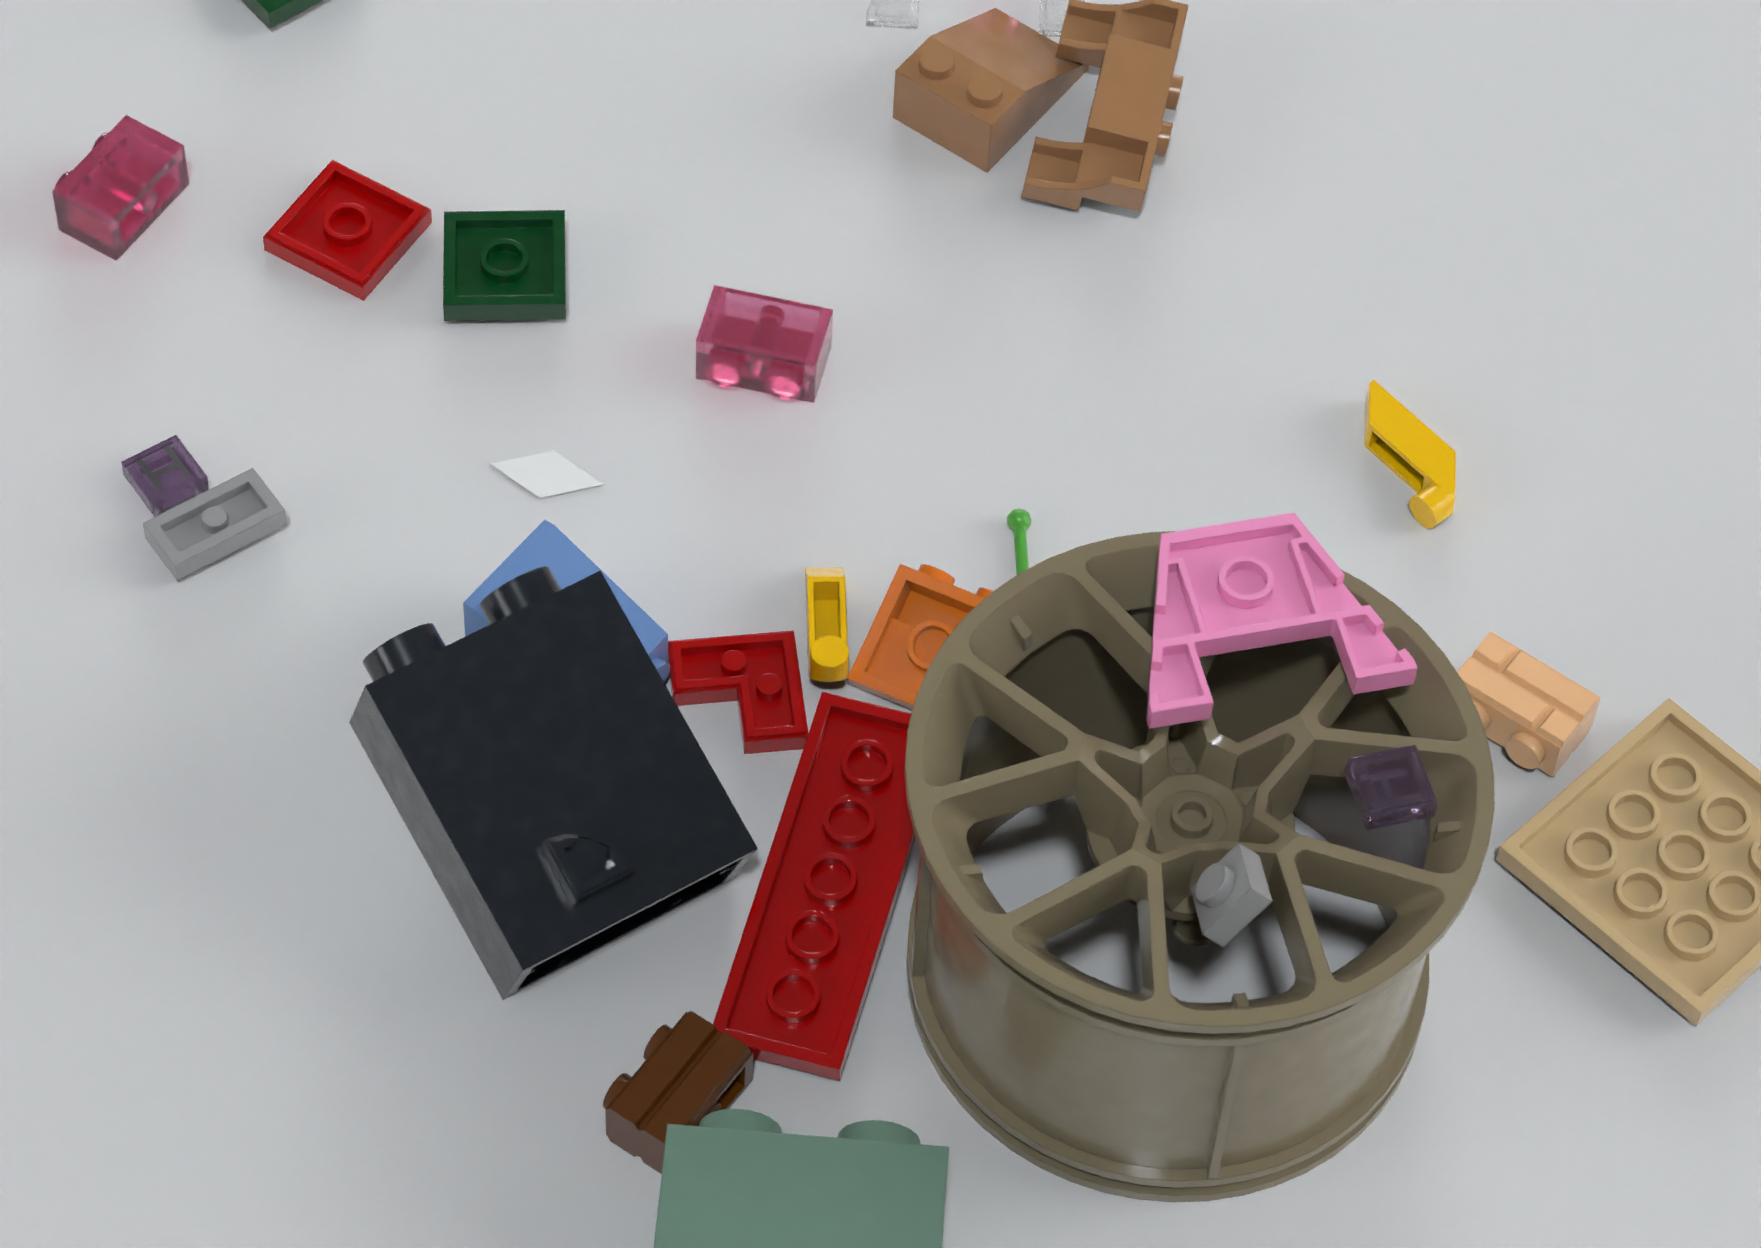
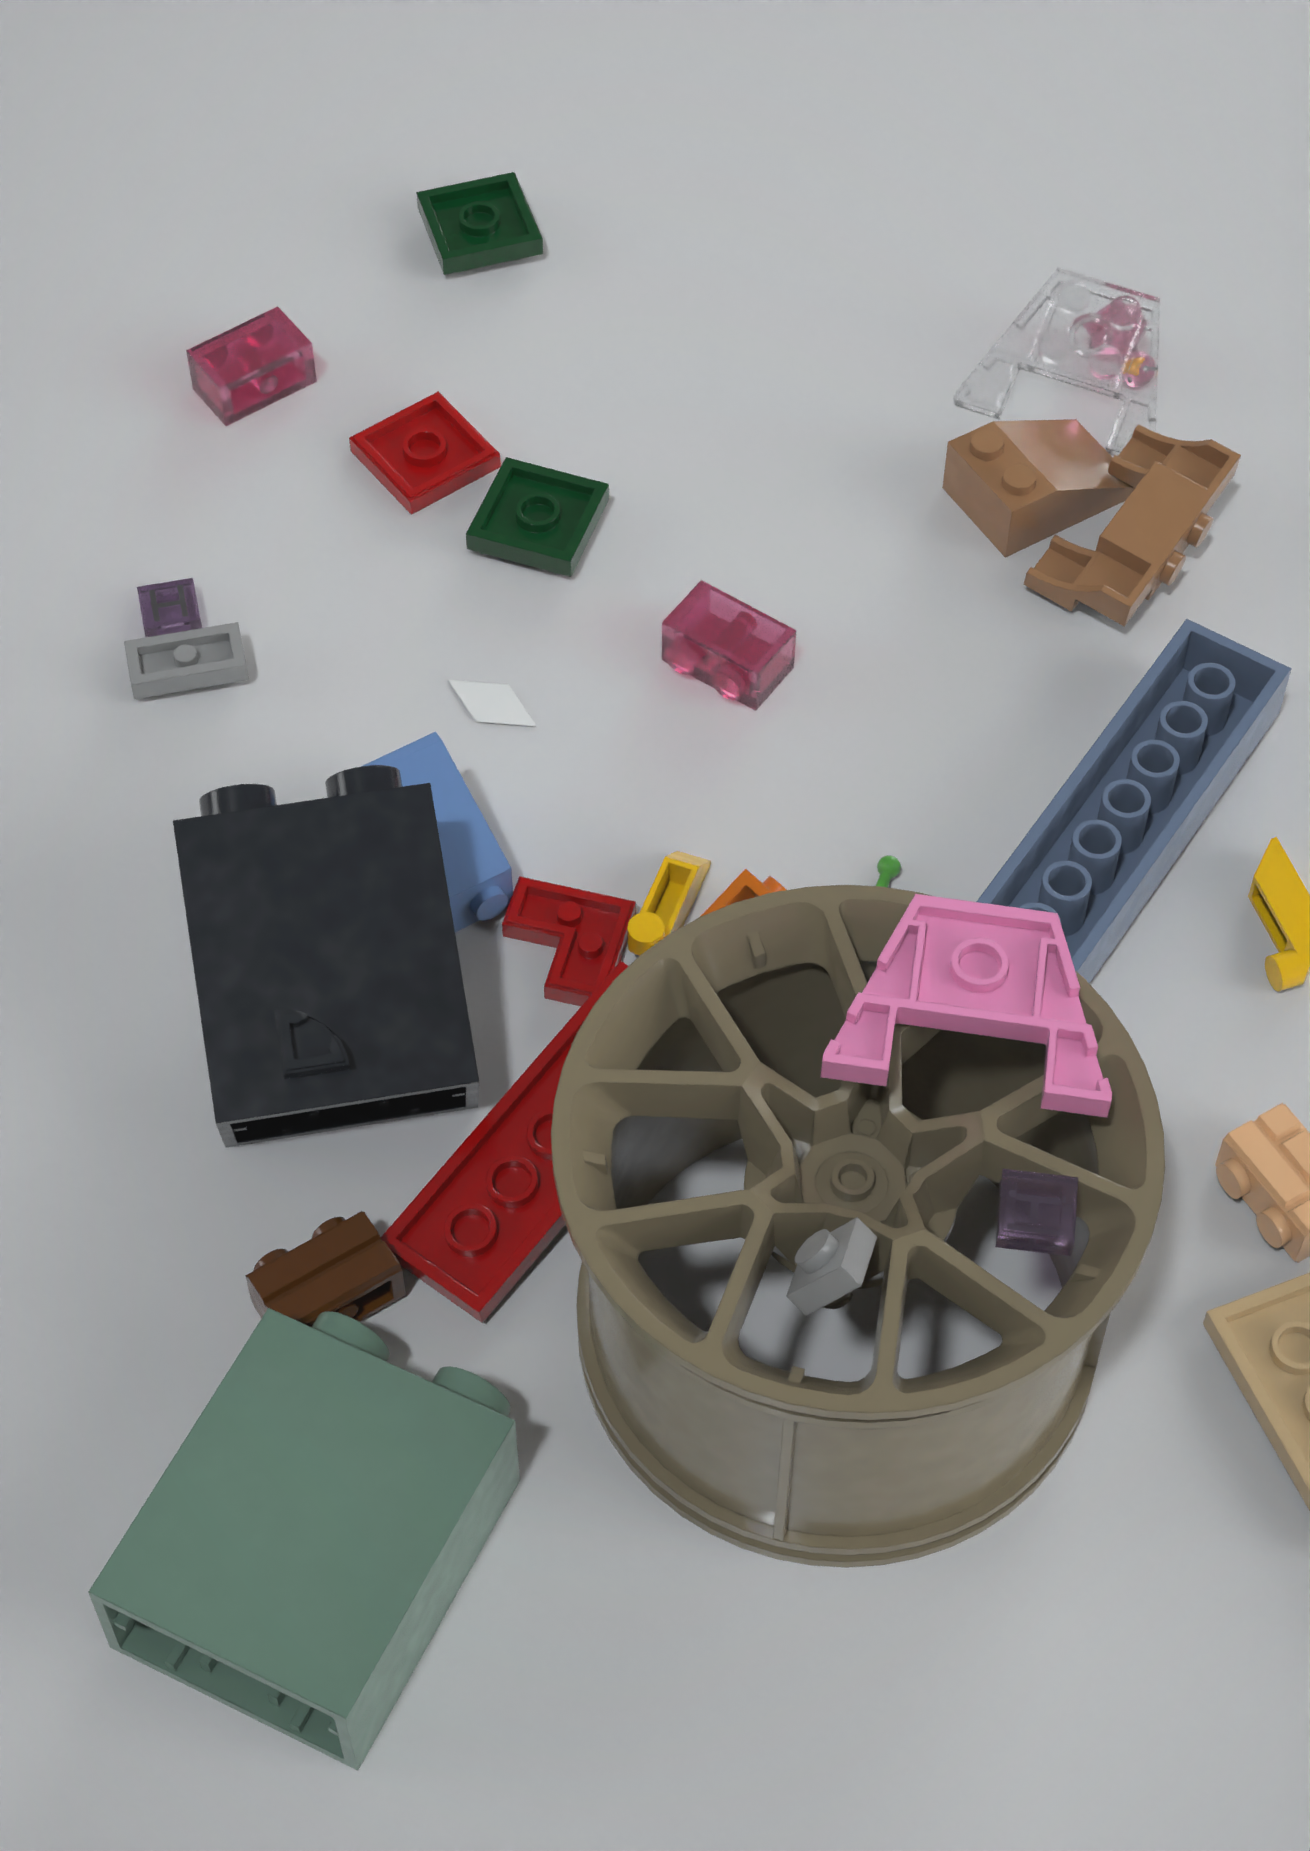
camera: 25 degrees right, 0 degrees up
(1233, 364) = (1143, 790): none -> sand blue brick

